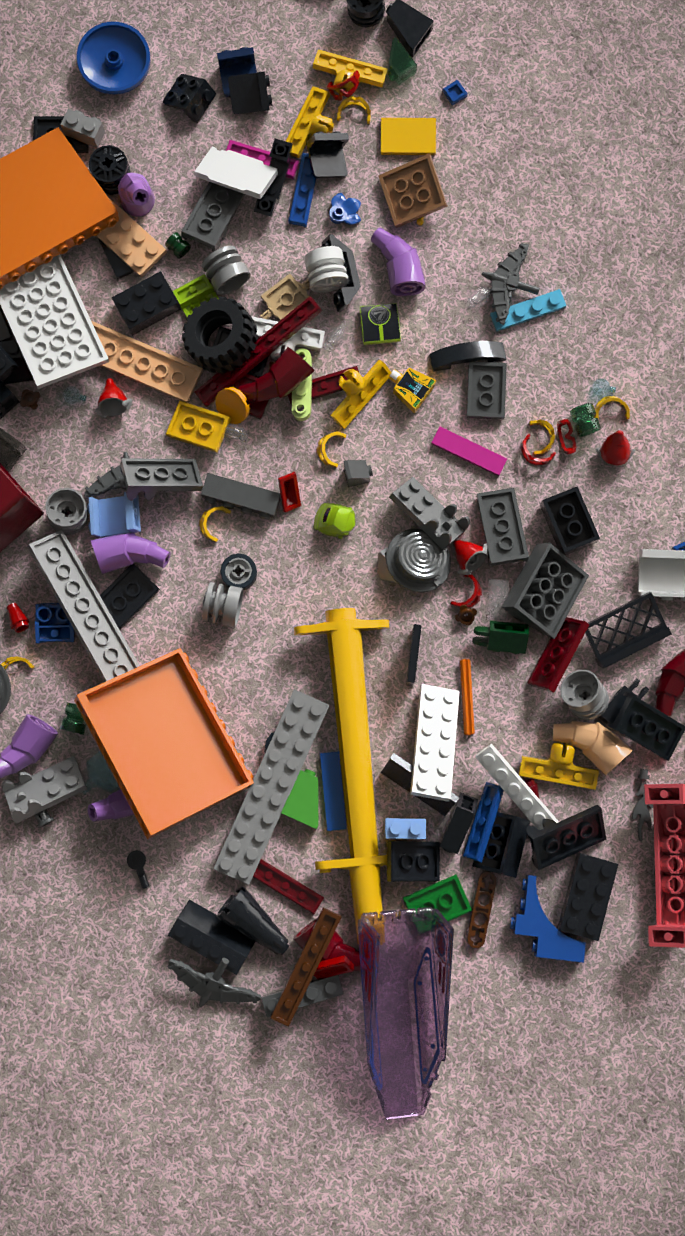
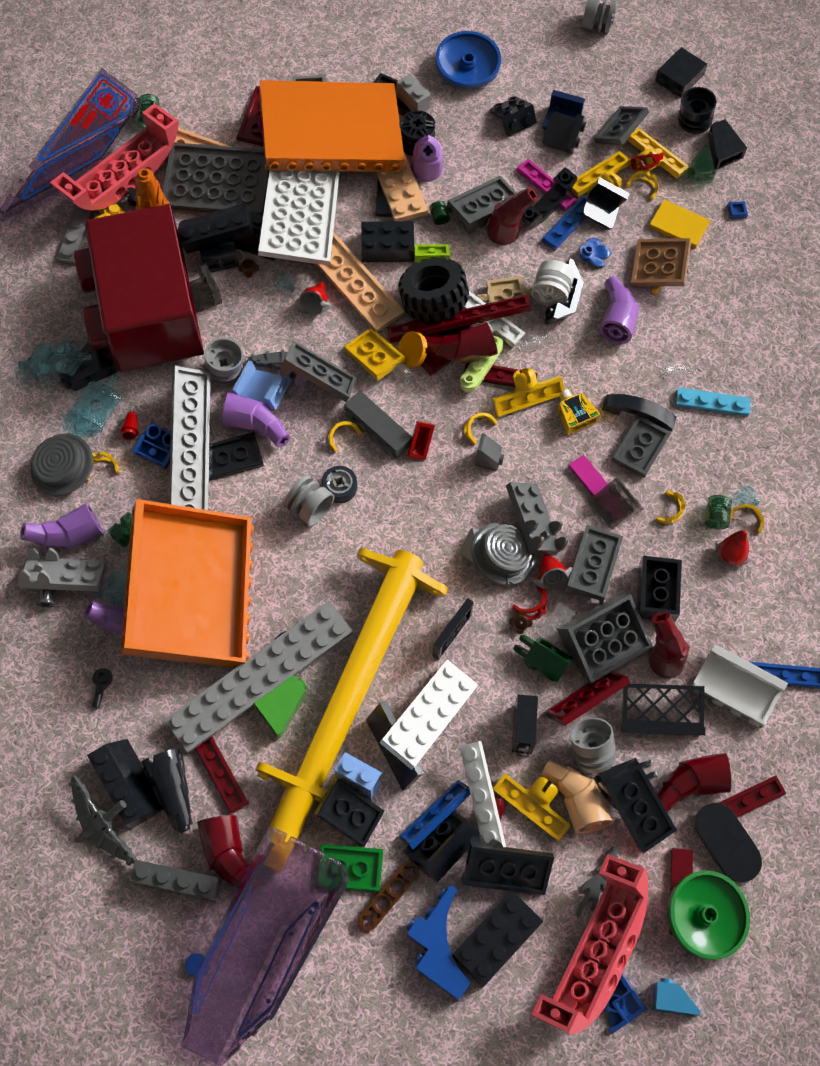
camera: 25 degrees right, 15 degrees down
(226, 270) = (468, 245): light grey wheel -> none
(236, 172) = (518, 177): white piece -> none
(246, 220) = (507, 216): none -> dark red piece
(301, 56) = (621, 125): none -> dark grey plate
(305, 967) = (191, 849): reddish brown plate -> none
(333, 791) = (312, 713): blue tile -> none
(333, 967) = (216, 866): red tile -> none
(334, 520) = (448, 484): lime helmet -> none
(357, 1049) = (193, 962): none -> blue tile
(380, 324) = (576, 350): black slope -> none
(459, 823) = (411, 802): black slope -> none
(467, 698) = (482, 694): orange axle -> none
(491, 459) = (615, 503): none -> clear smoke bracket
(506, 280) = (706, 369): dark grey bar -> none
(518, 707) = (524, 725): none -> black brick
(532, 460) = (649, 518): red helmet -> none
(566, 450) = (695, 503): red helmet -> none
(605, 575) = (670, 650): none -> dark red piece

